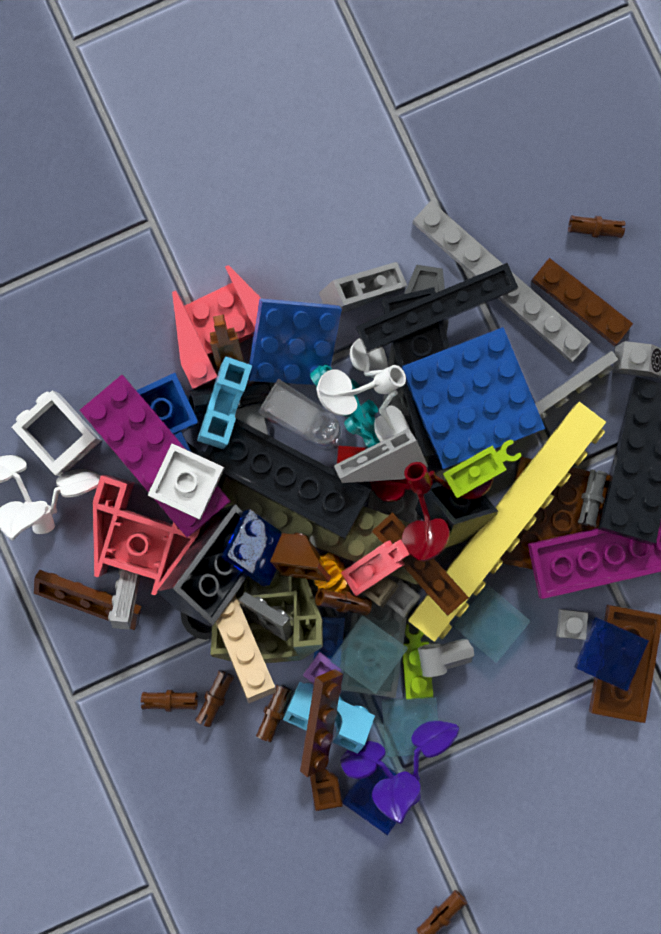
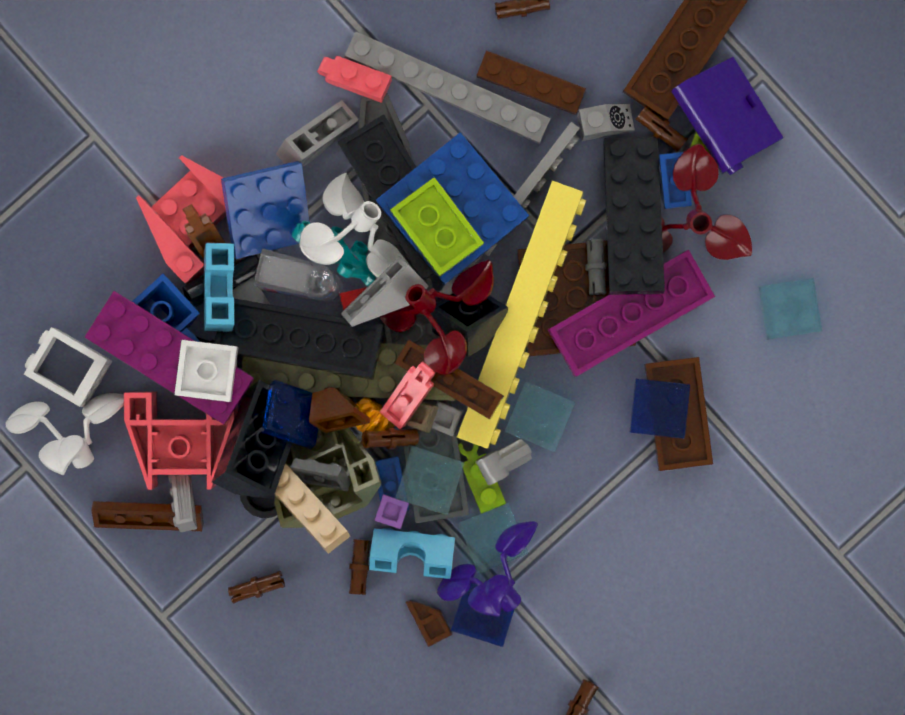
camera: 15 degrees left, 0 degrees up
(214, 698) = (299, 571): reddish brown pin -> none
(321, 722) = (404, 558): reddish brown plate -> none
(416, 244) = (355, 77): none -> coral hinge
(436, 308) = (391, 134): black plate -> none
(454, 411) = (437, 227): none -> lime plate
(478, 469) = (476, 273): lime plate -> none
(572, 624) = (617, 393): light grey plate -> none

